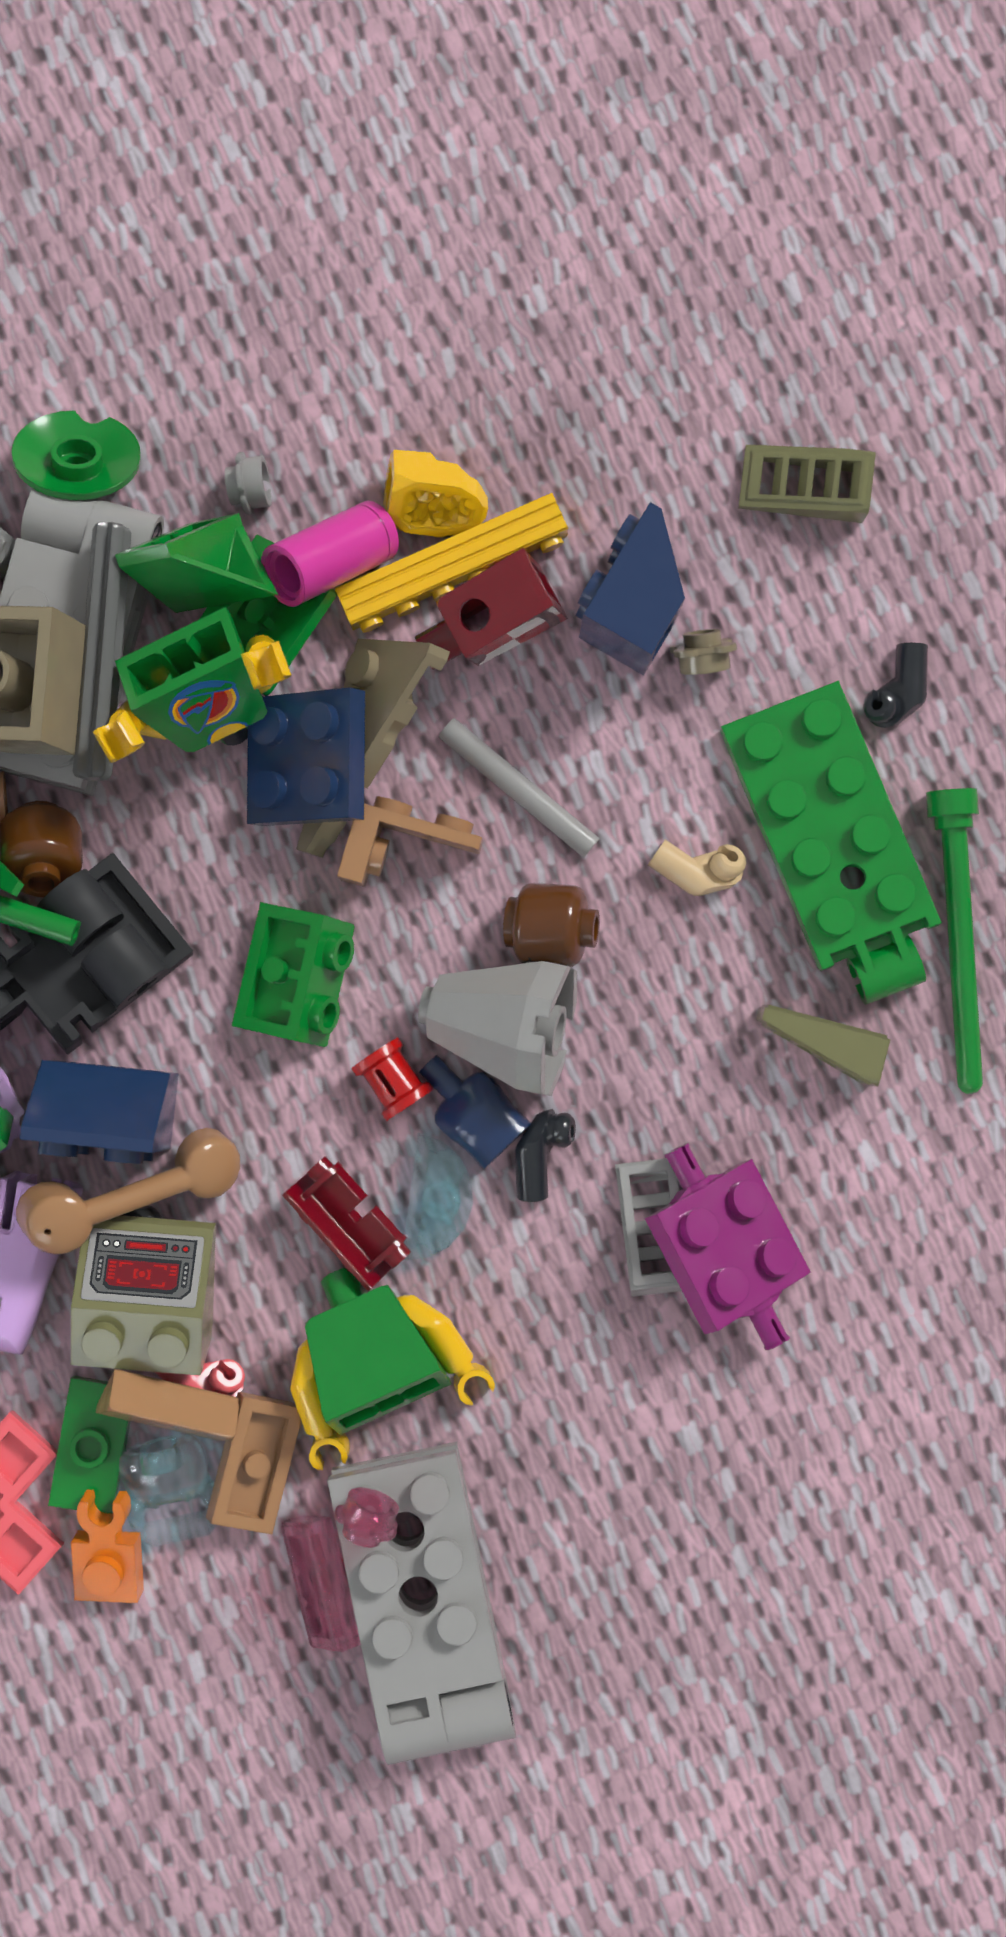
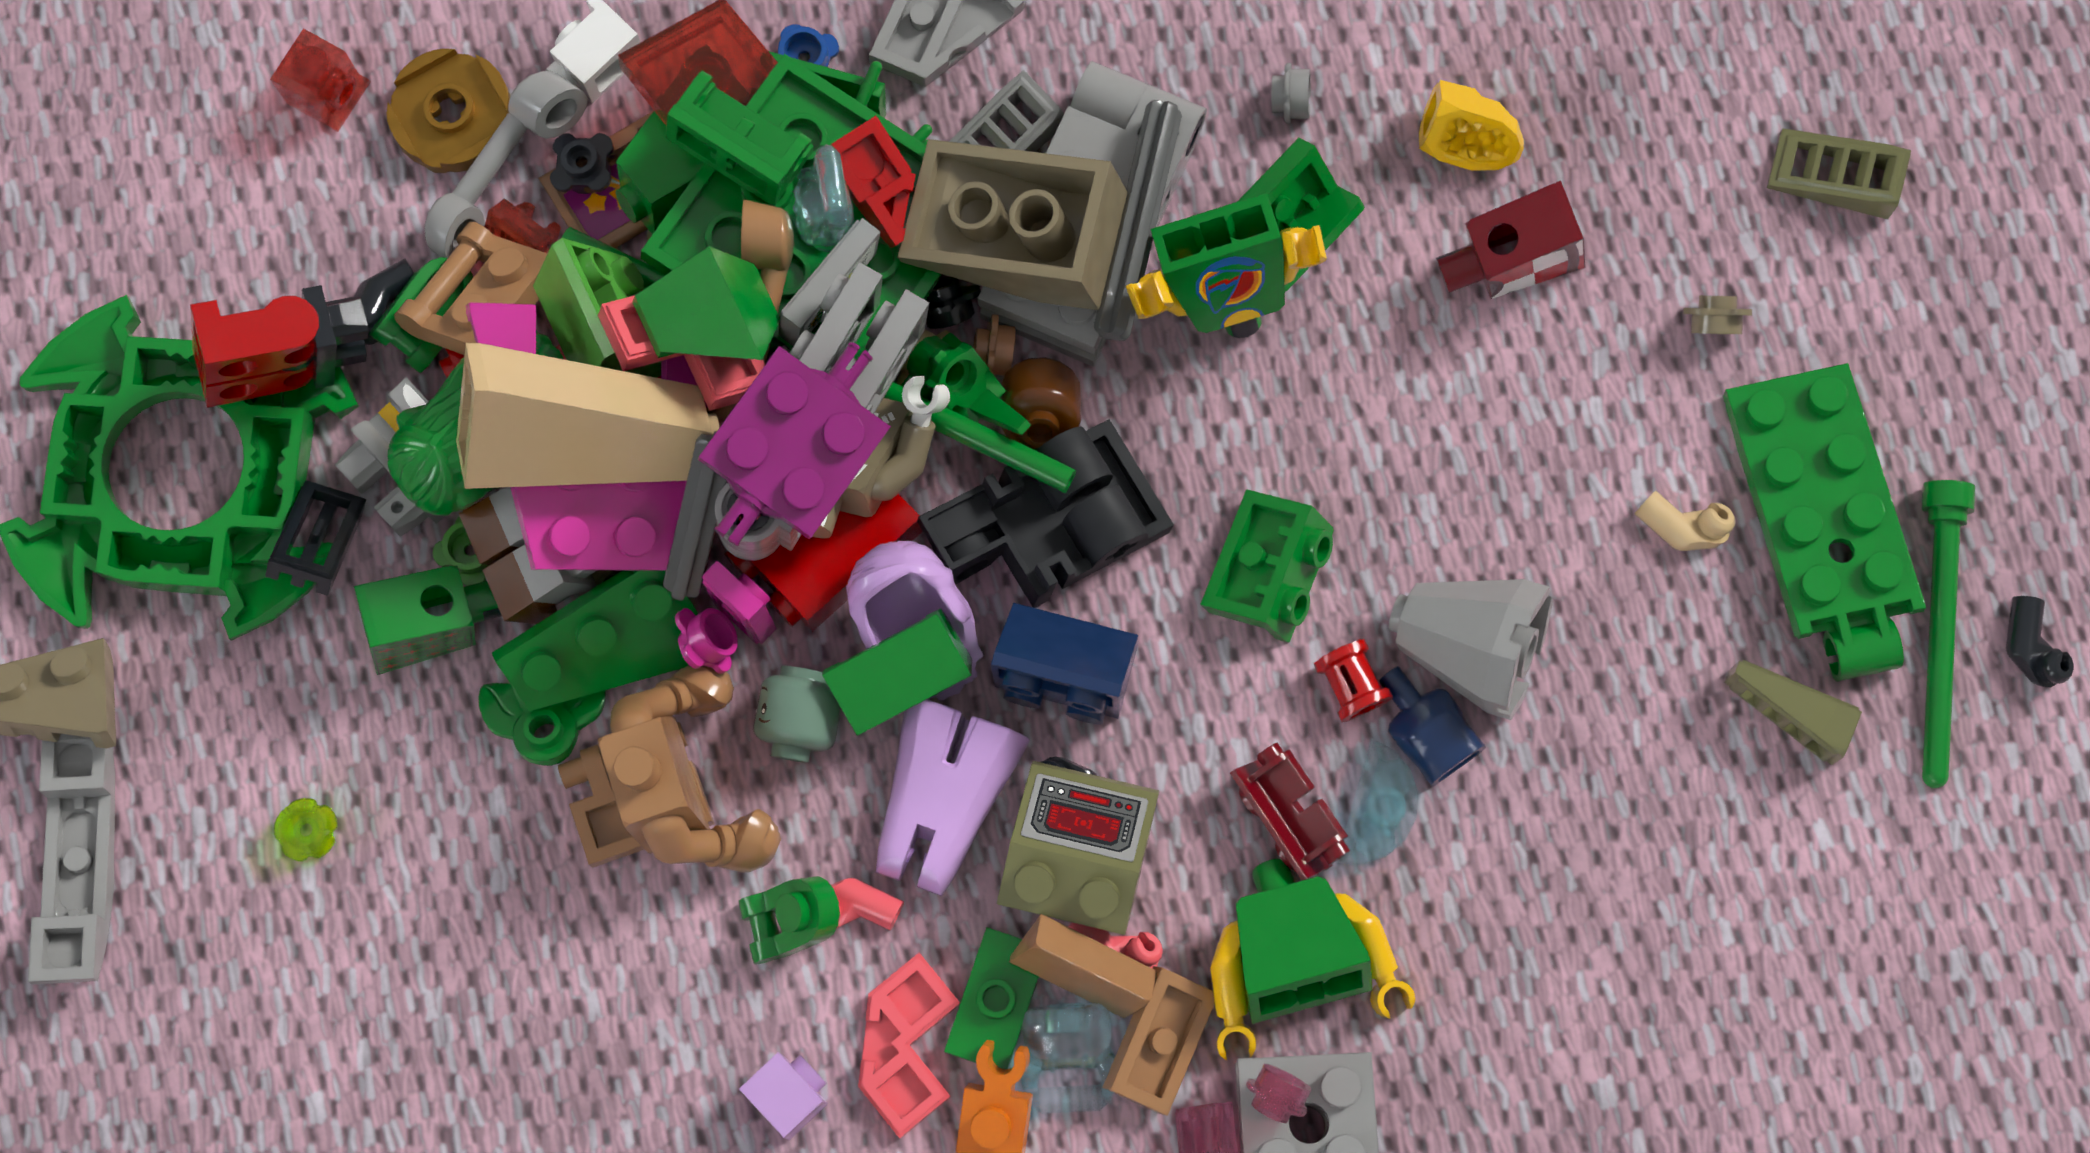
camera: 15 degrees right, 10 degrees down
(61, 1221) = (1153, 735): medium nougat piece -> none
(75, 458) = (1130, 46): green dish -> none
(199, 565) = (1240, 159): green slope -> none
(307, 759) = (1315, 357): dark blue plate -> none
(330, 552) = (1366, 165): dark pink pin -> none
(367, 851) = (1391, 426): medium nougat bracket -> none
(388, 676) = (1374, 337): dark tan wing -> none
(450, 562) = (1457, 200): yellow piece -> none
(518, 787) = (1516, 420): light grey bar -> none
(533, 1149) = (1484, 773): black arm -> none
(550, 924) = (1532, 549): reddish brown head -> none
(639, 597) = (1659, 249): dark blue slope -> none
(661, 1170) = (1597, 924): light grey slope -> none
(727, 1246) = (1671, 896): magenta plate -> none
(904, 692) = (1913, 384): black arm -> none

